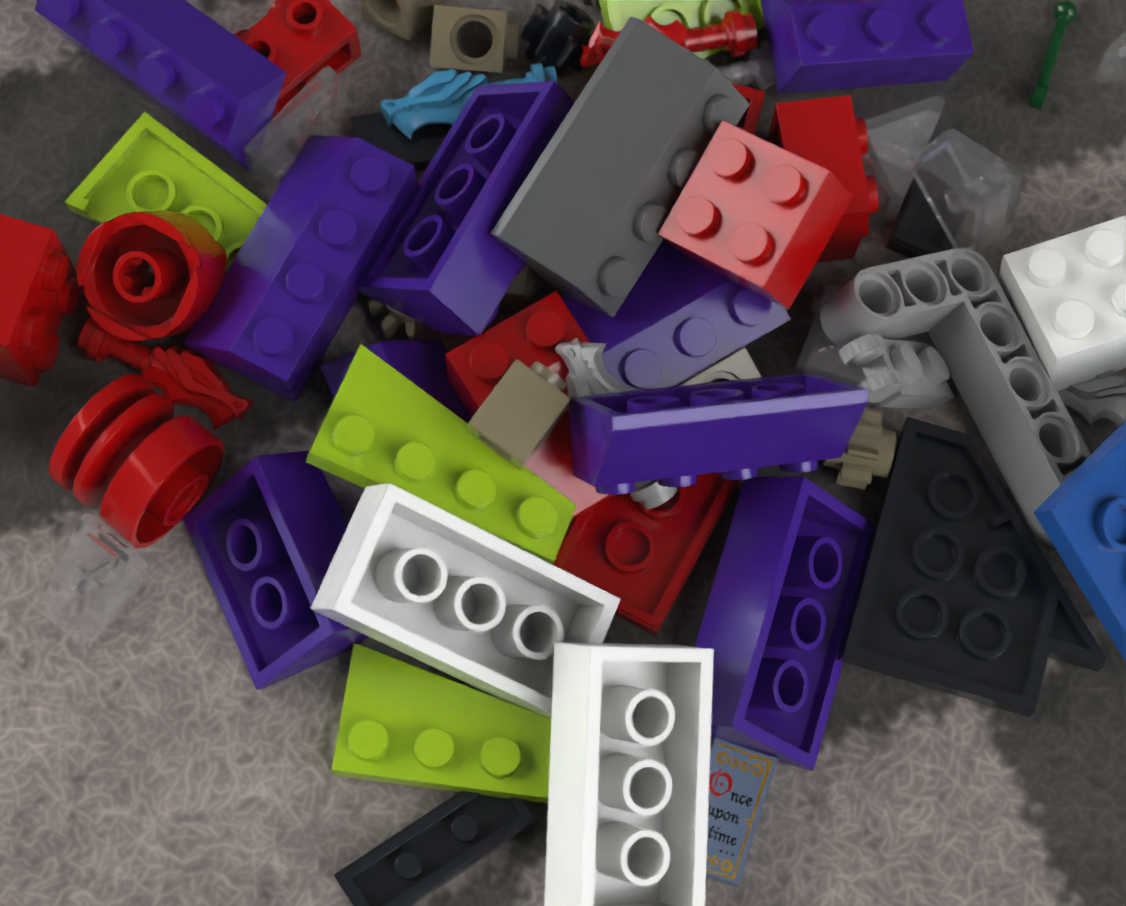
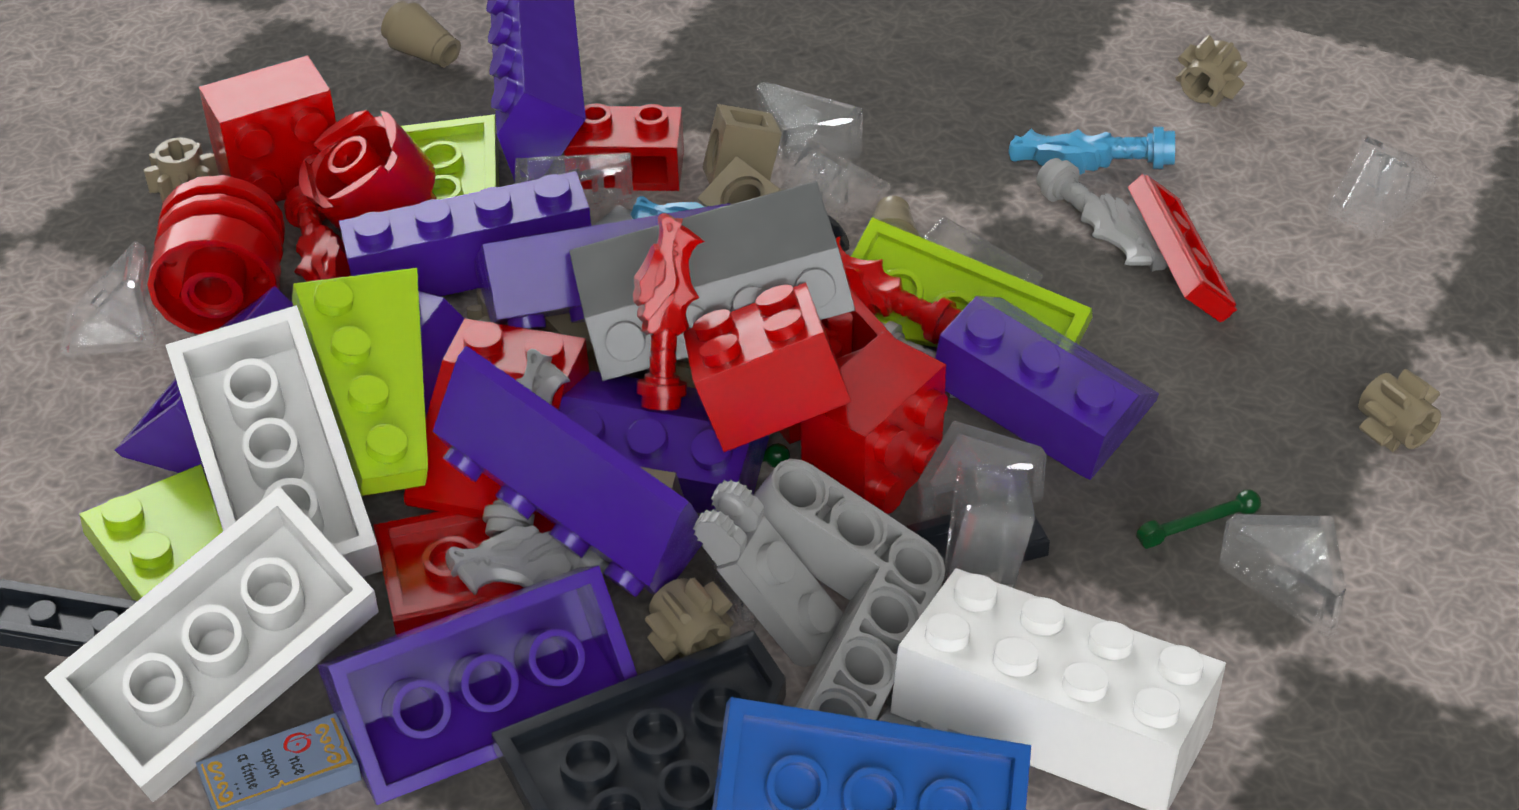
camera: 50 degrees right, 30 degrees down
(520, 412) = (431, 350): dark tan brick -> none
(637, 229) = (663, 294): none -> red piece
(695, 515) = (516, 557): none -> light grey piece

